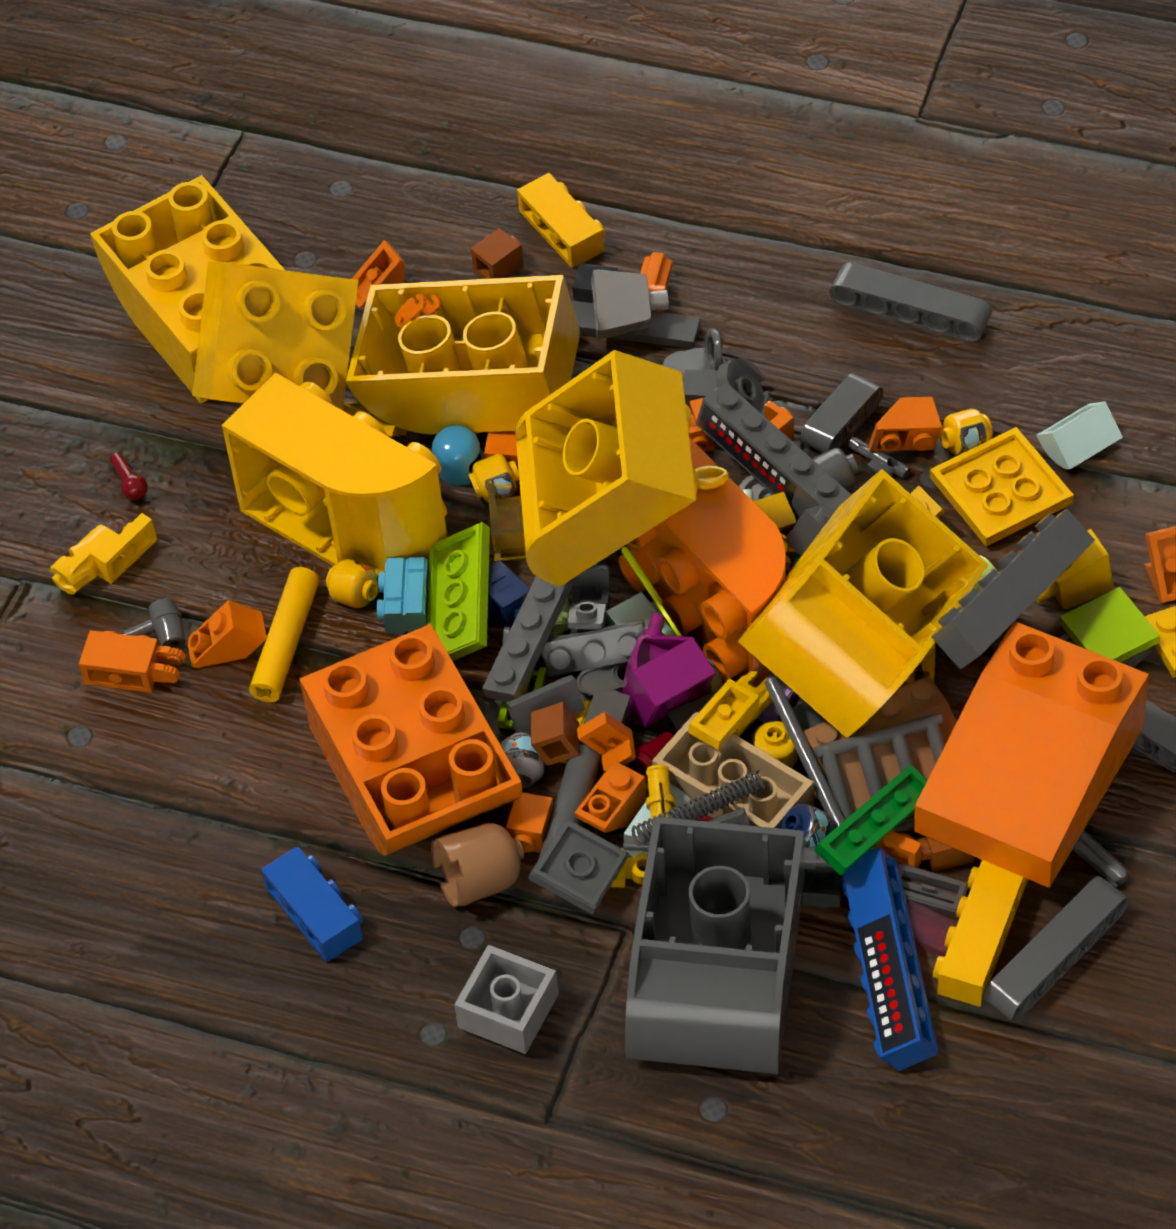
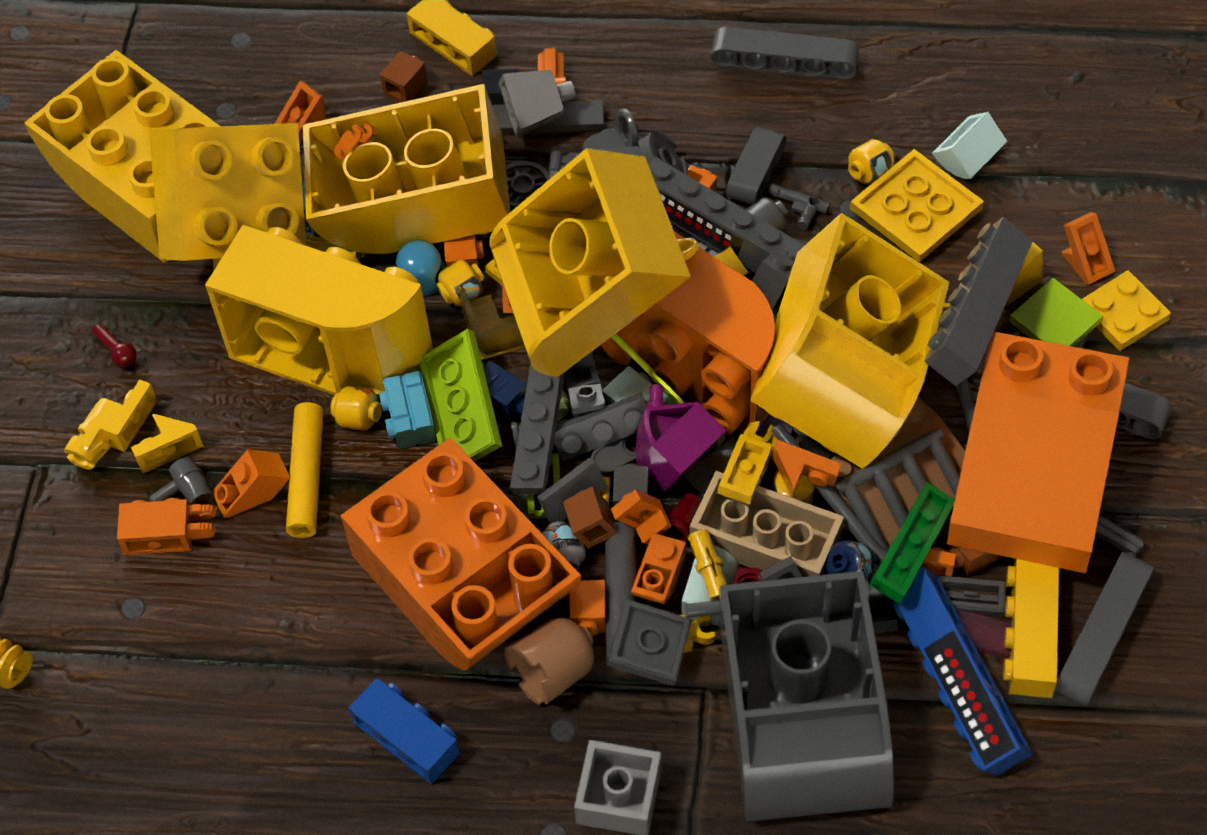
camera: 15 degrees left, 5 degrees up
(162, 581) = (174, 441): none -> yellow slope
(698, 810) = (750, 559): dark grey piece -> none
(780, 718) = (795, 462): none -> orange slope
(907, 426) = (821, 165): orange slope -> none

